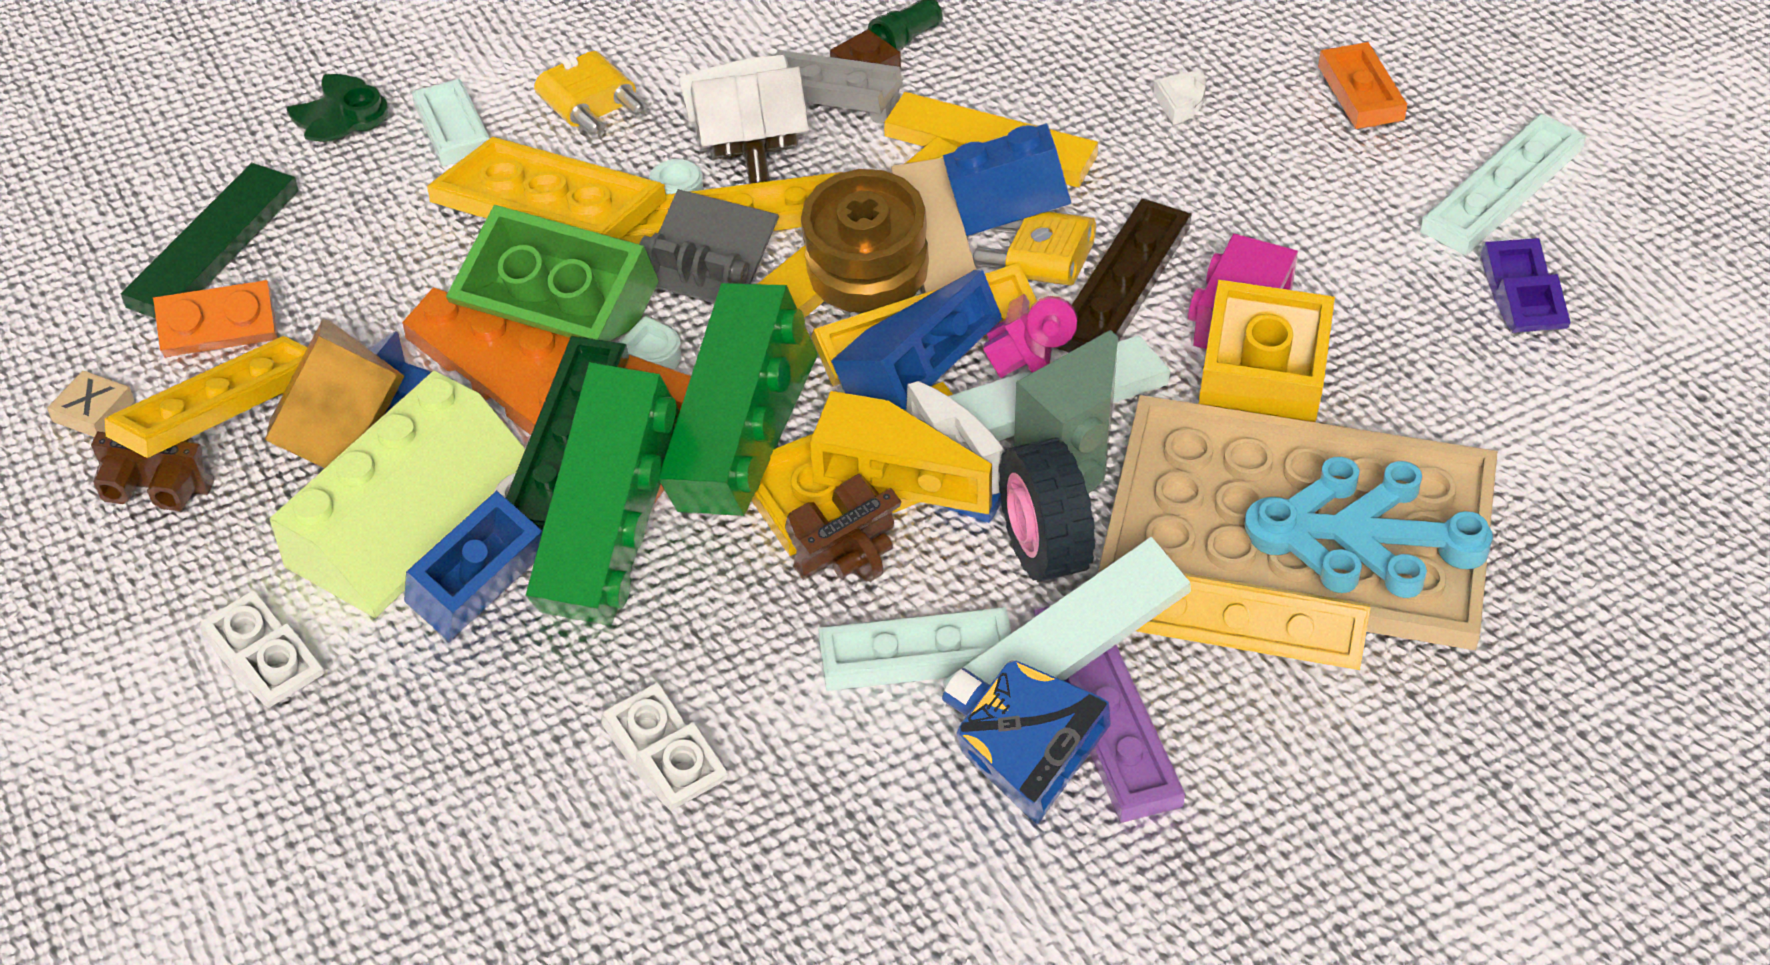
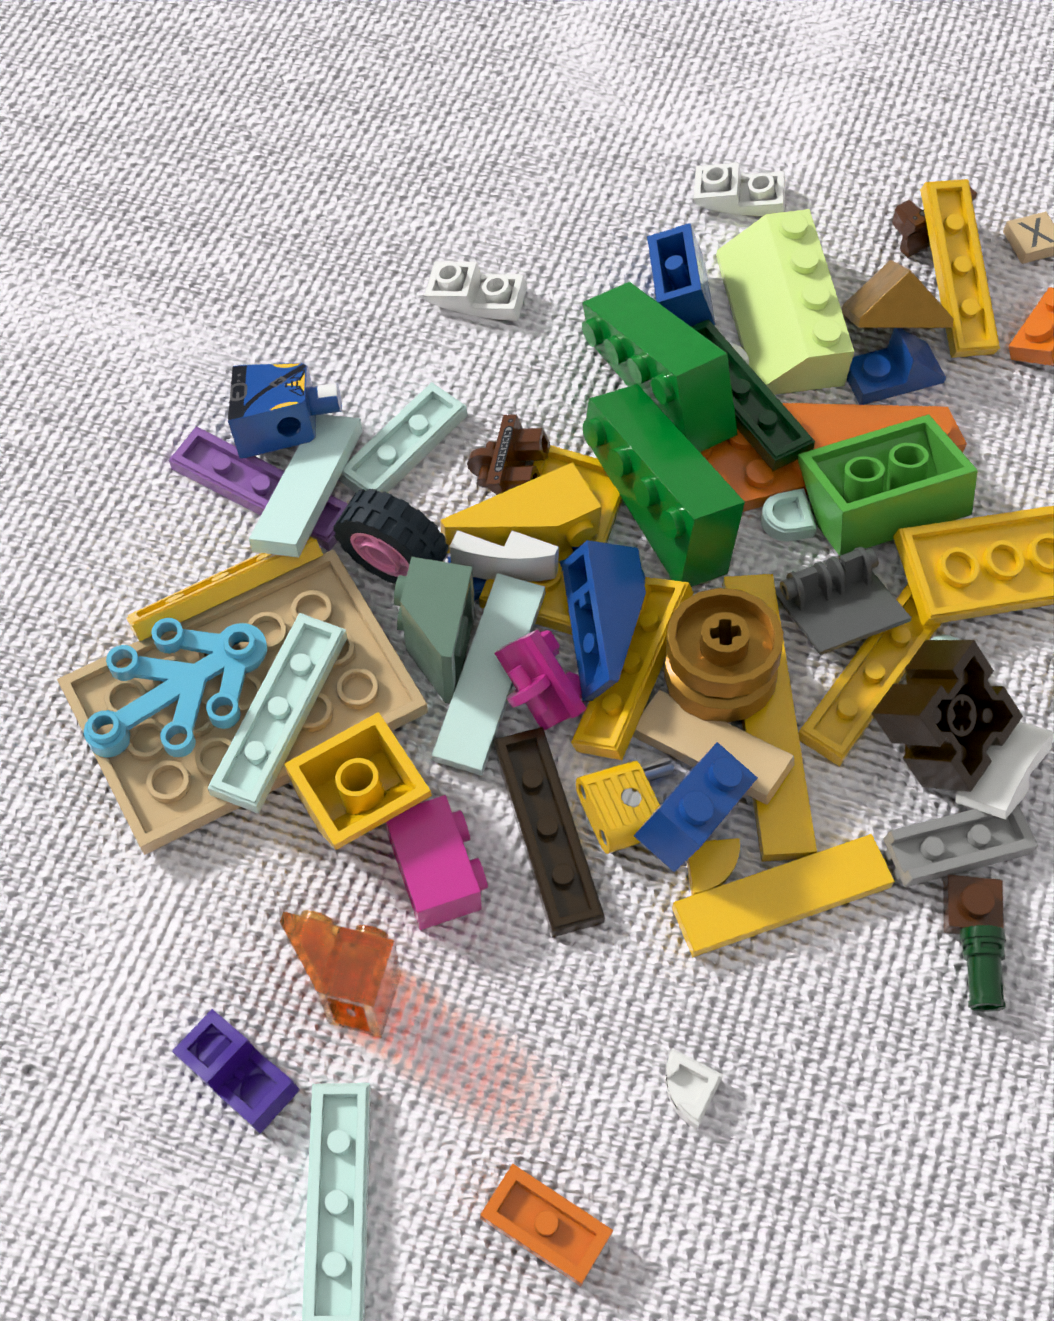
camera: 135 degrees right, 15 degrees up
(1279, 461) = (278, 713): none -> light aqua tile
(1388, 248) = (346, 969): none -> clear orange slope

